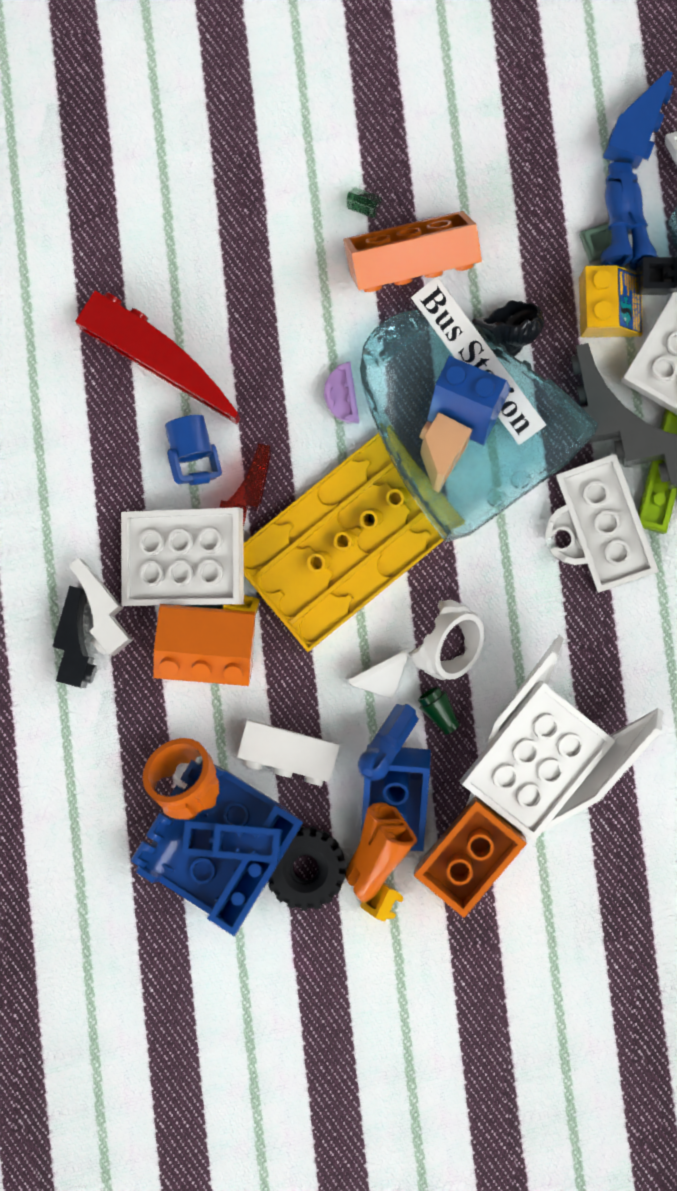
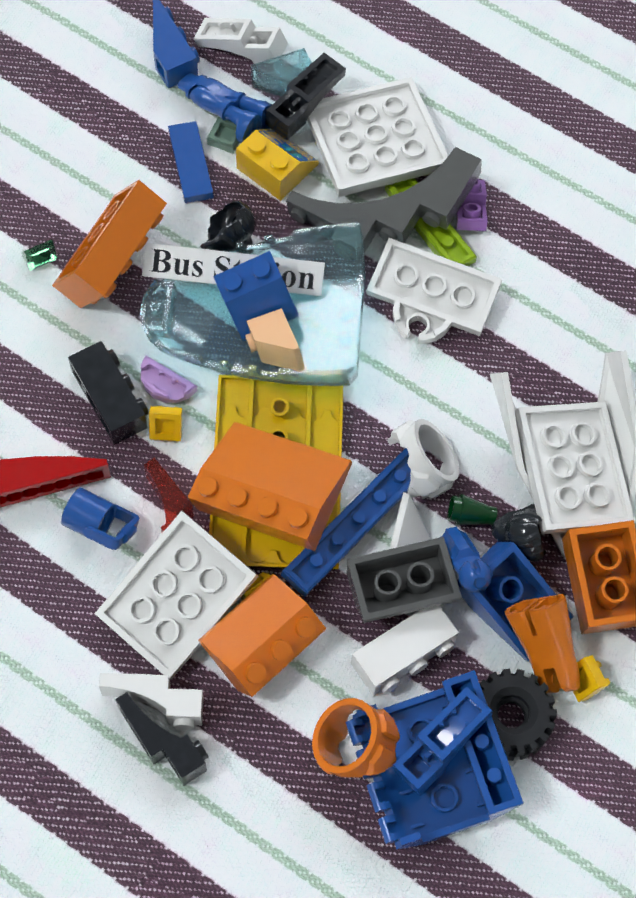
camera: 50 degrees left, 20 degrees down
(297, 361) = (109, 392): none -> black brick
(309, 425) = (165, 423): none -> yellow tile
(321, 550) = (270, 485): none -> orange slope
(332, 711) = (402, 580): none -> dark grey slope
(348, 632) = (350, 526): none -> blue tile
(450, 762) = (523, 530): none -> black hair
(549, 238) = (190, 162): none -> blue tile

